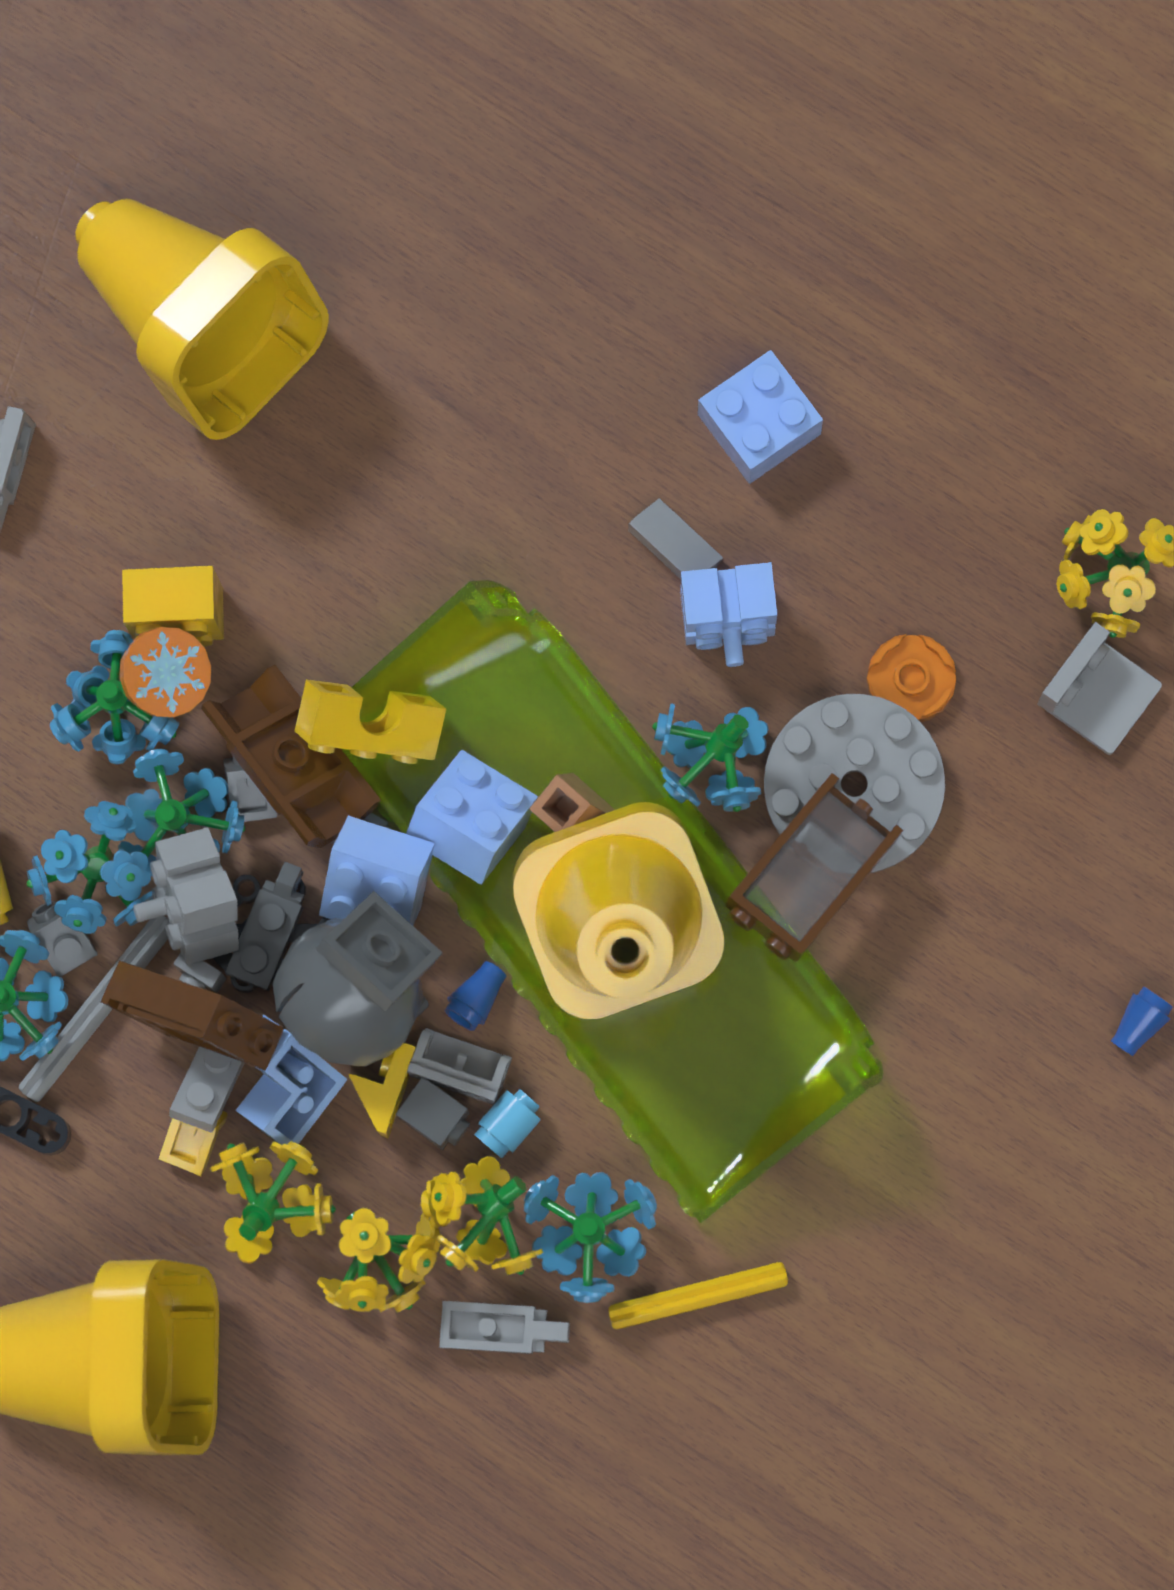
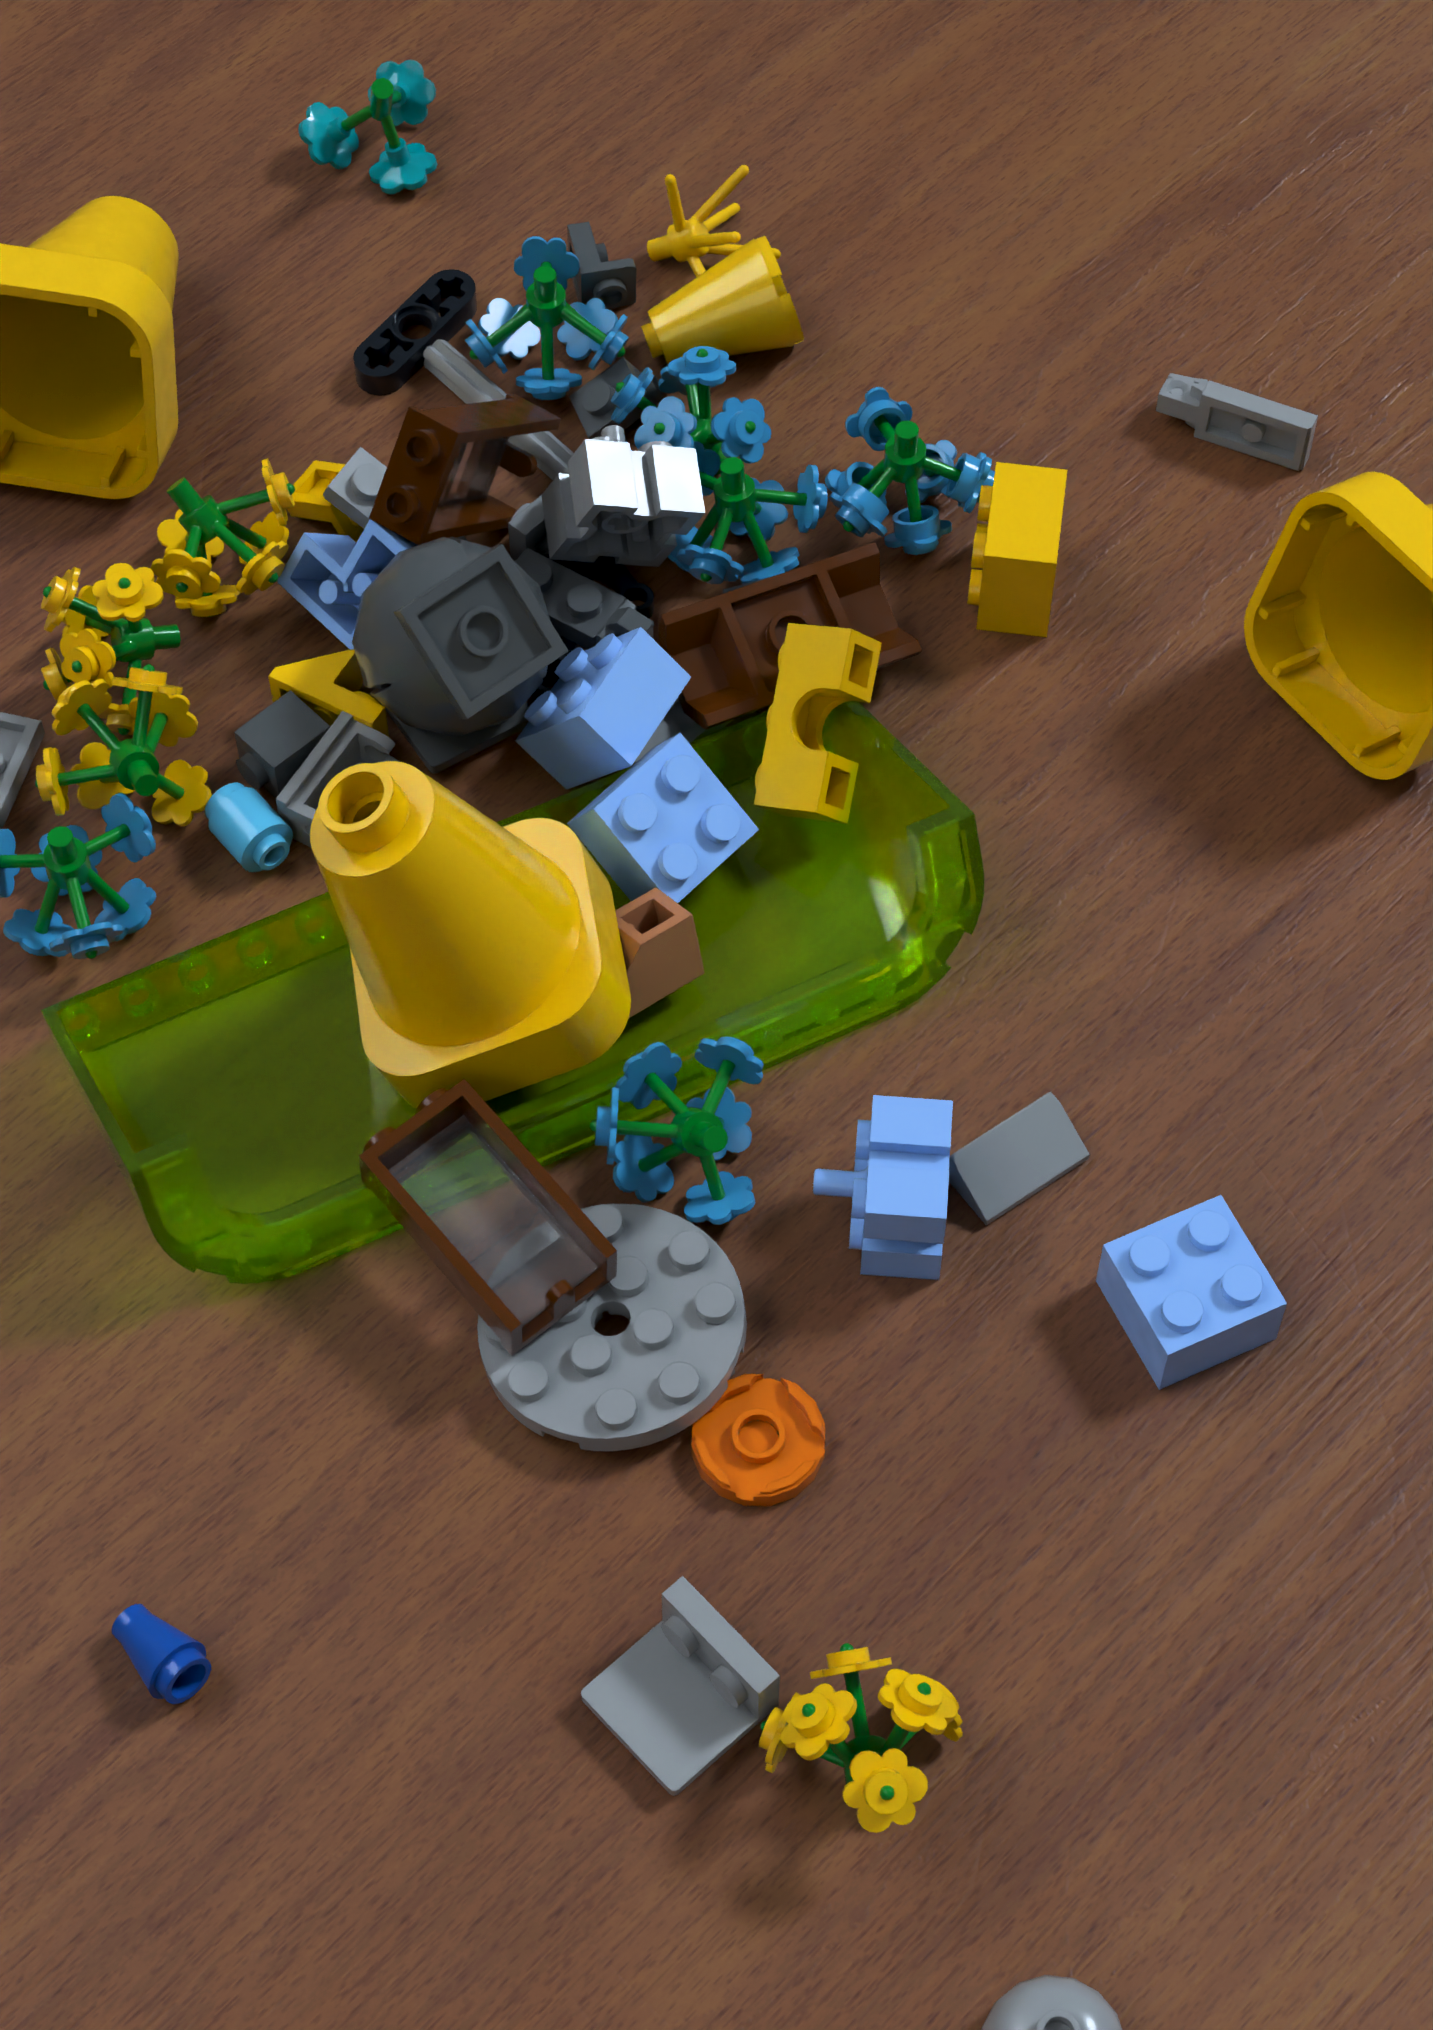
camera: 95 degrees right, 20 degrees down
(165, 672) = (922, 500): orange tile -> none

